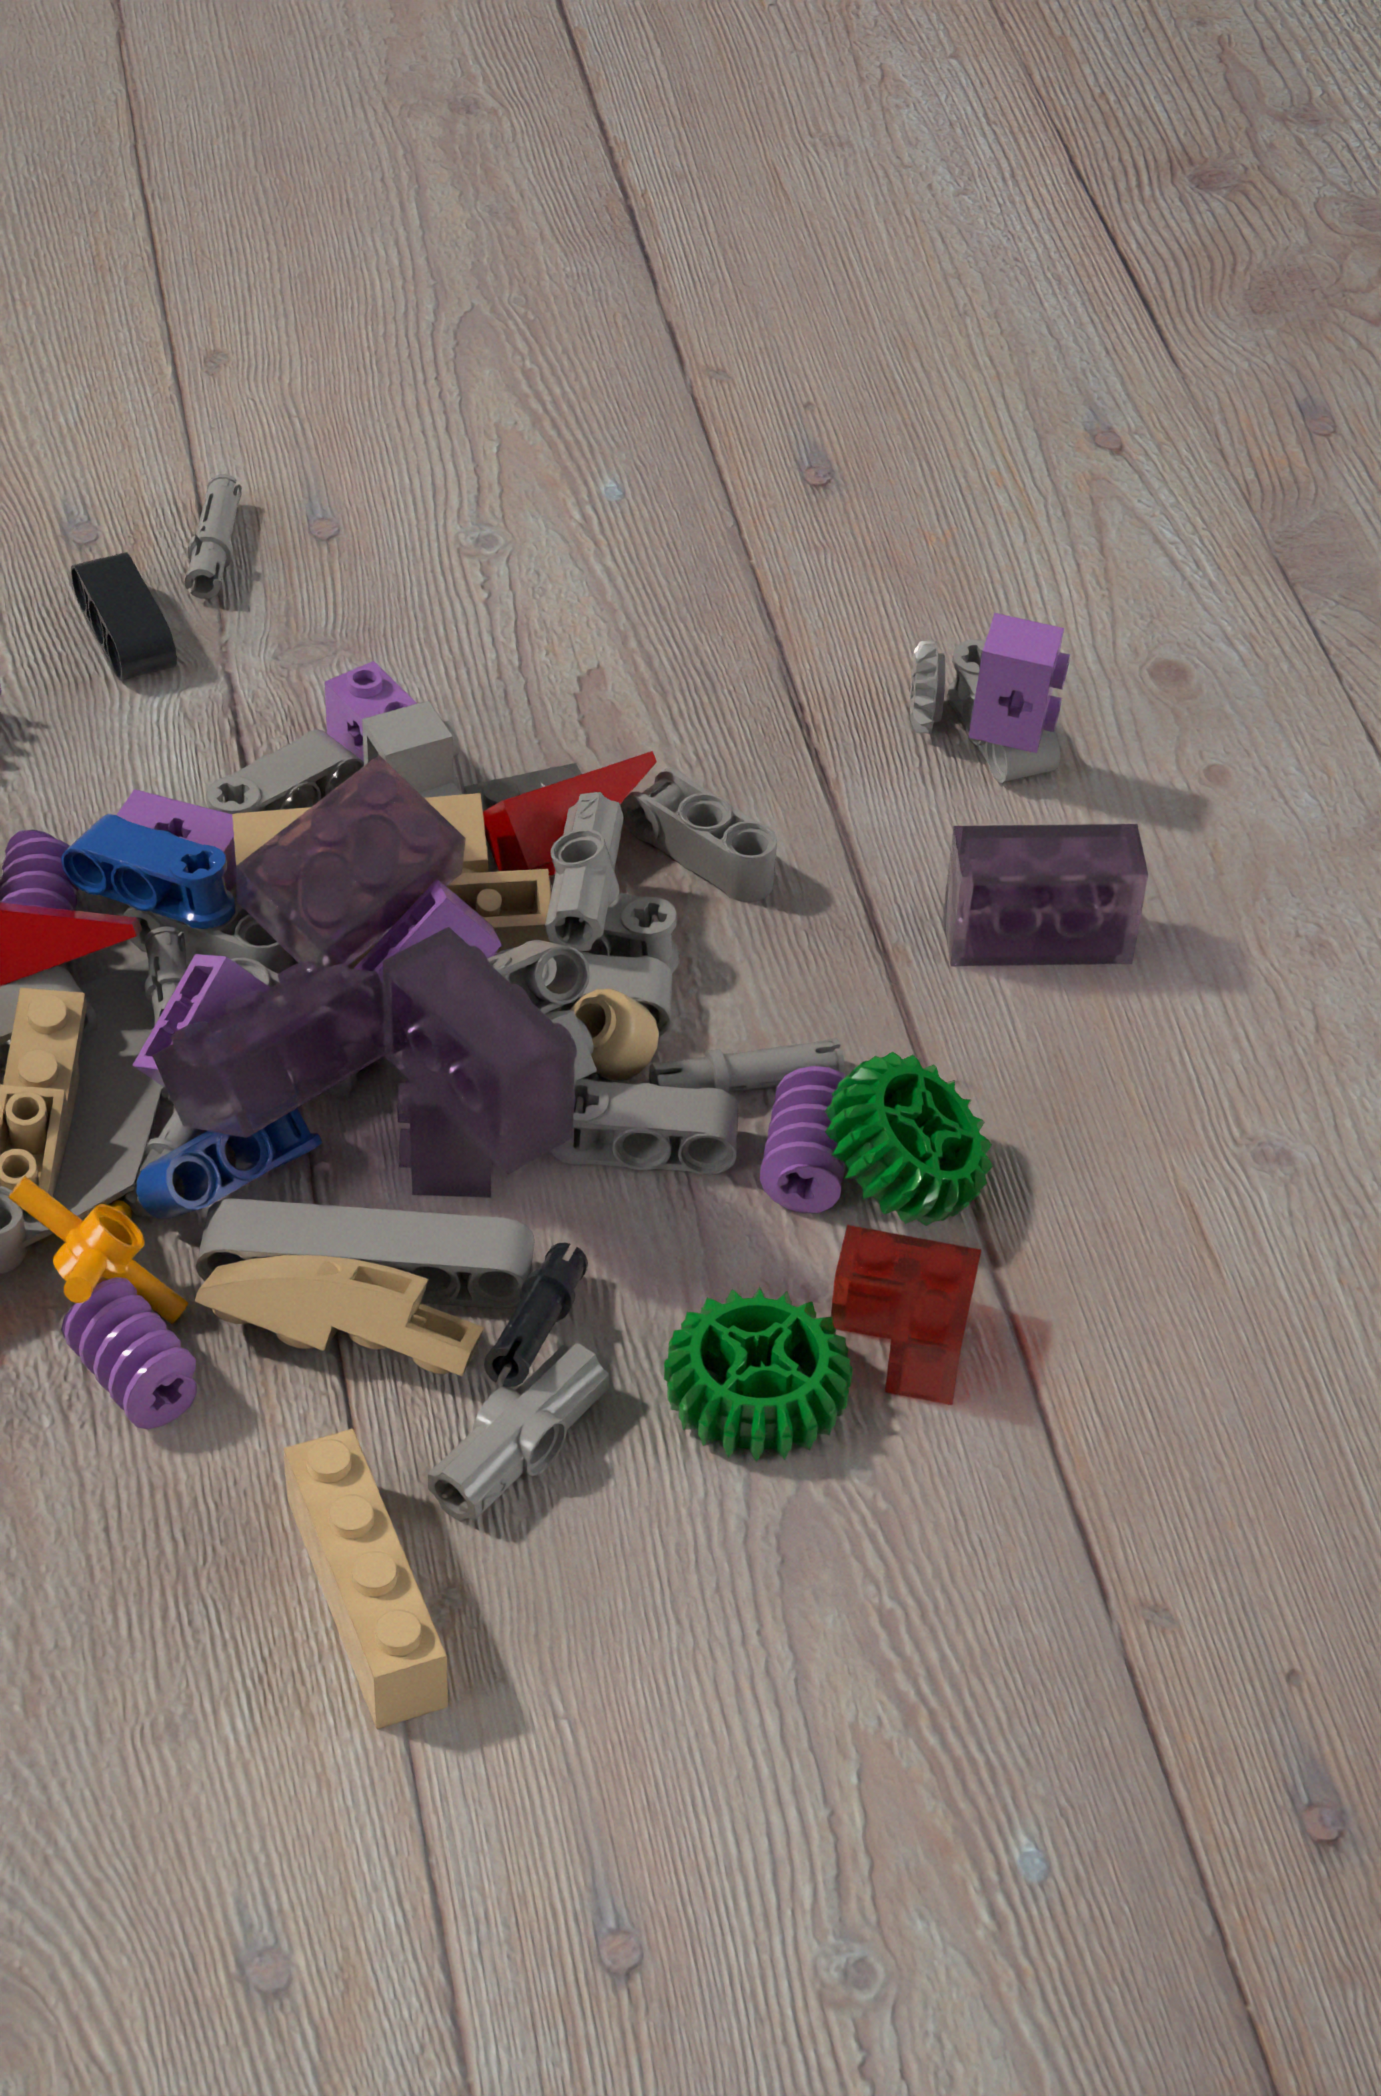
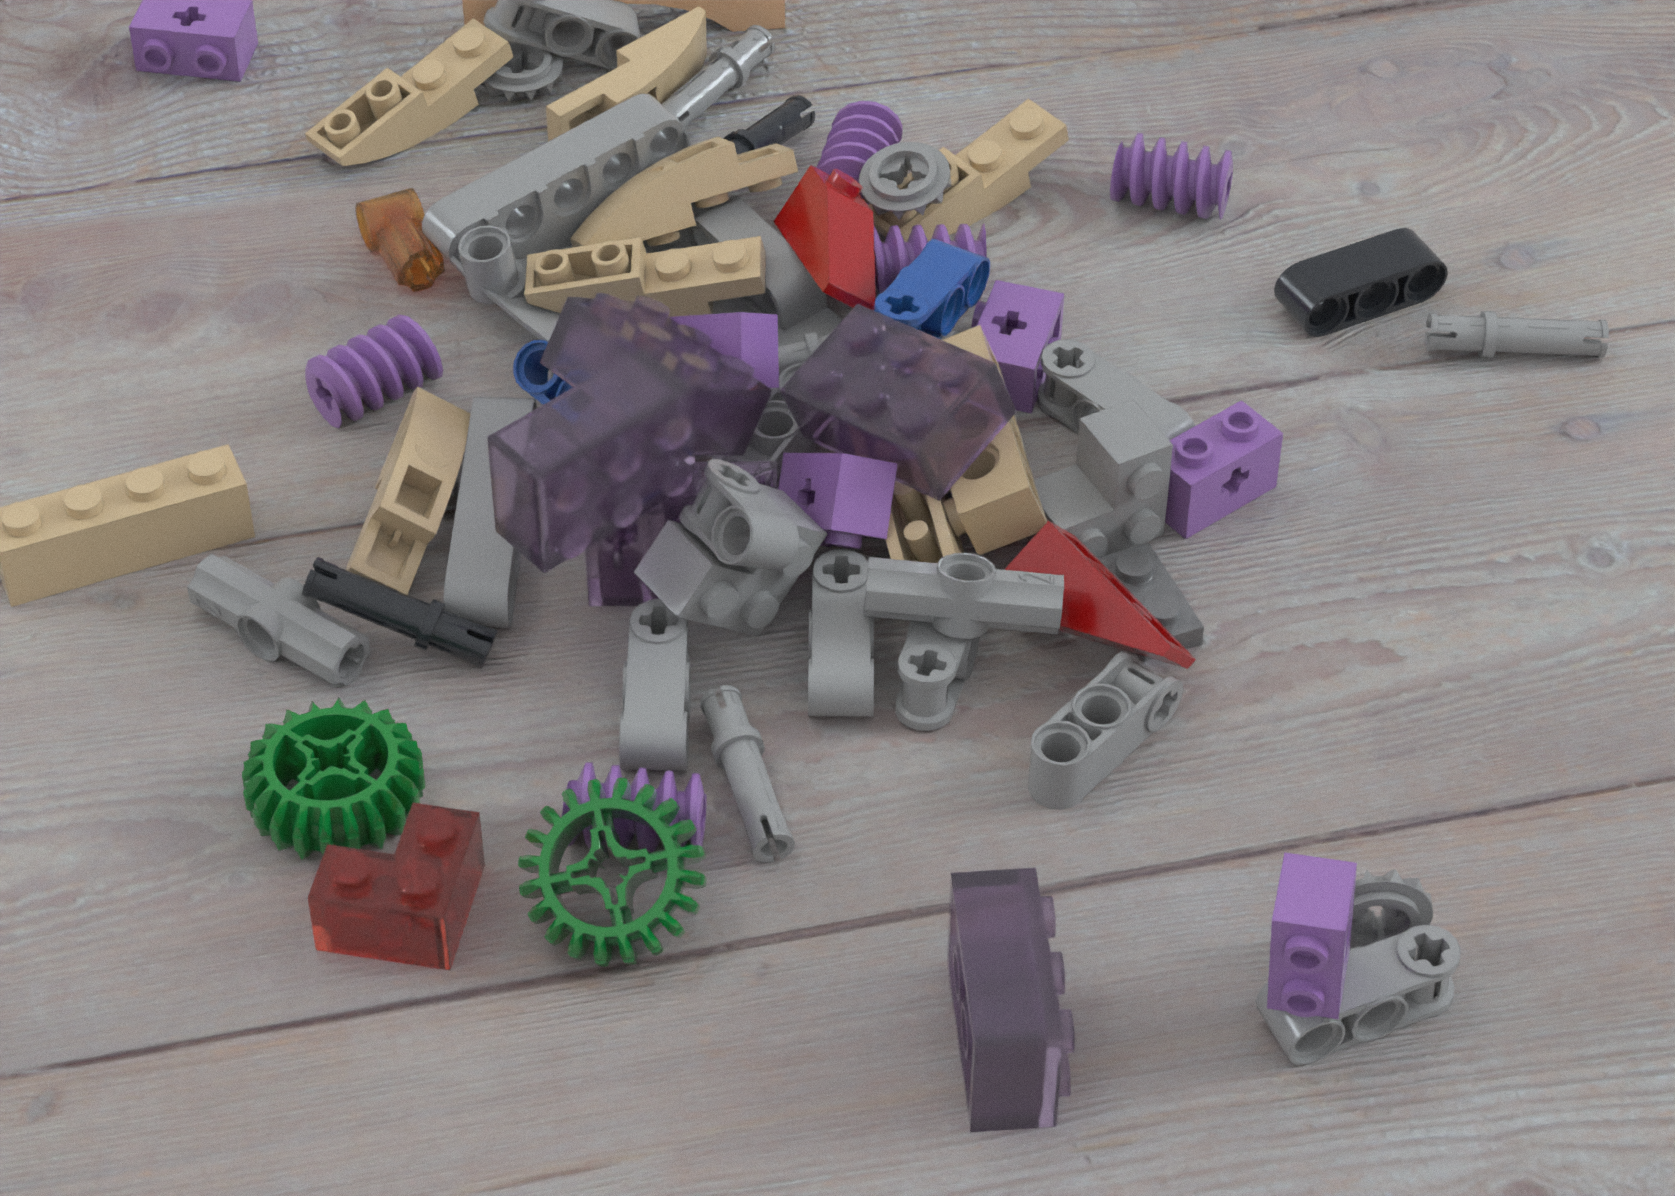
camera: 90 degrees right, 0 degrees up
(97, 1248) = (445, 318): light orange bar -> none
(621, 1033) = (766, 651): tan head -> none

